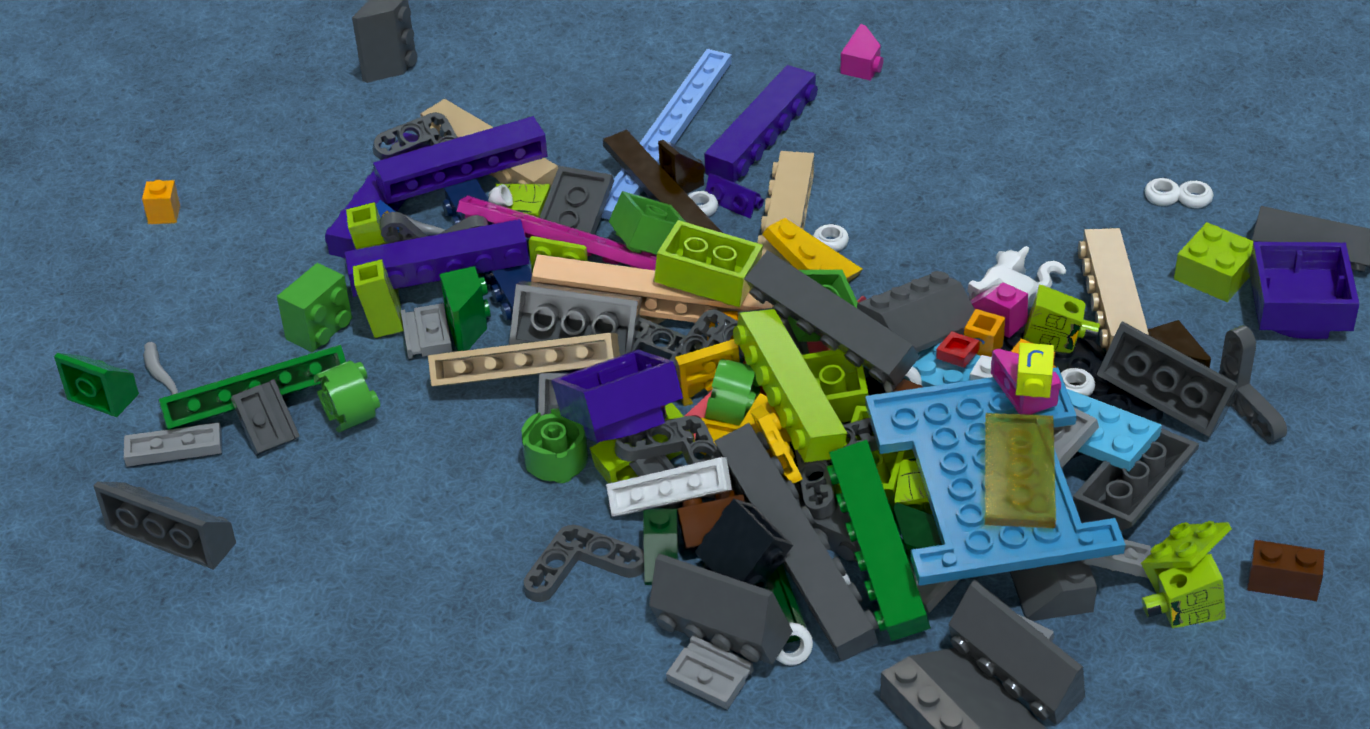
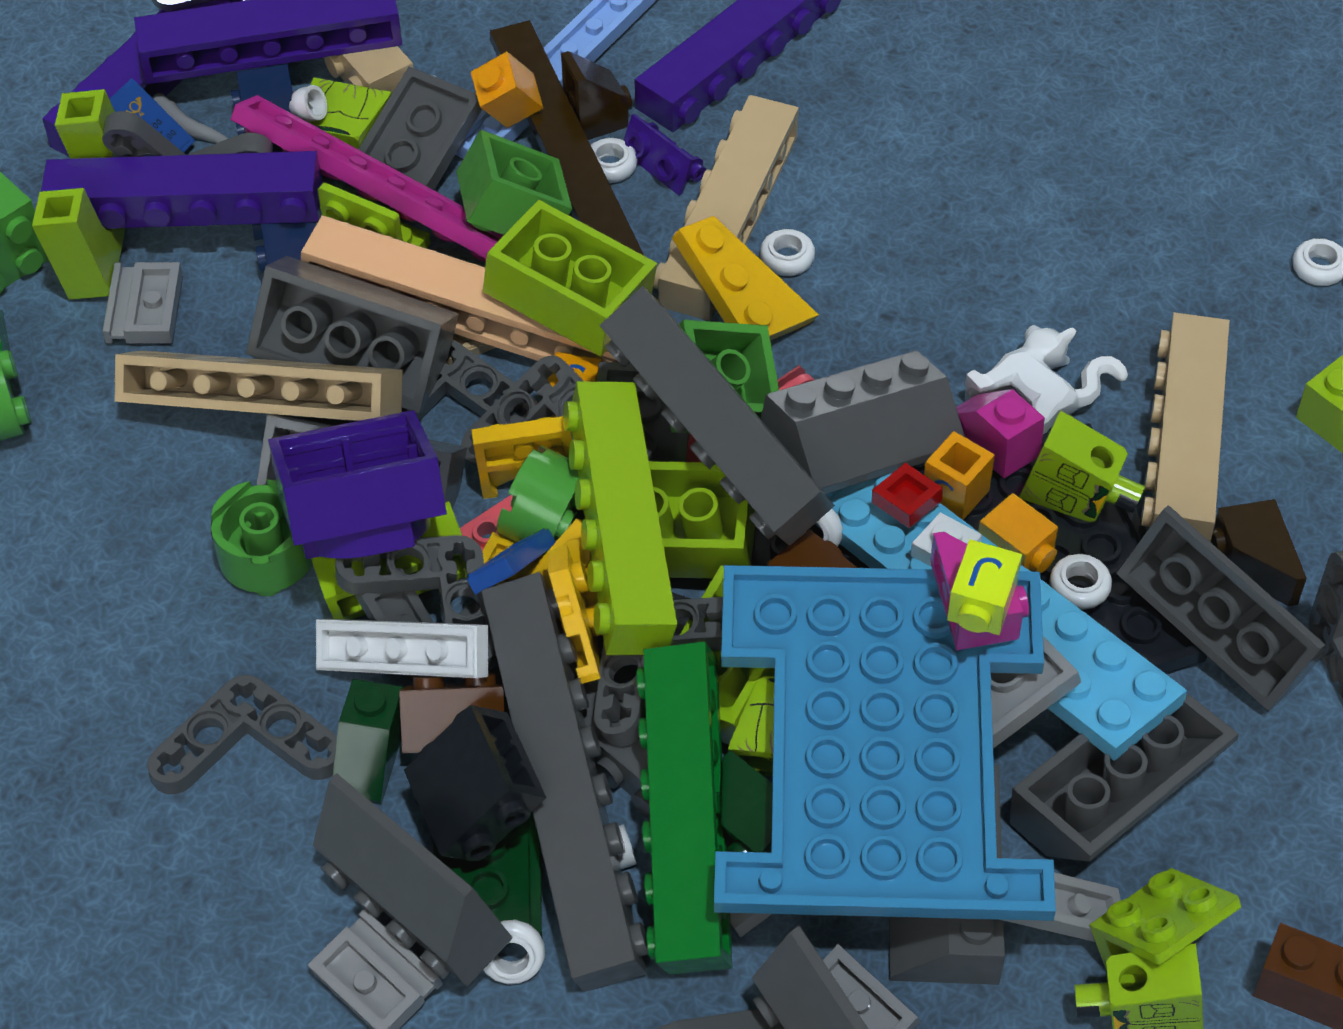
camera: 10 degrees right, 10 degrees up
(465, 305) = (202, 278): green slope -> none
(627, 169) = (506, 89): none -> light orange brick
(725, 424) = (510, 560): none -> blue tile
(1019, 470) = (923, 747): clear yellow tile -> none

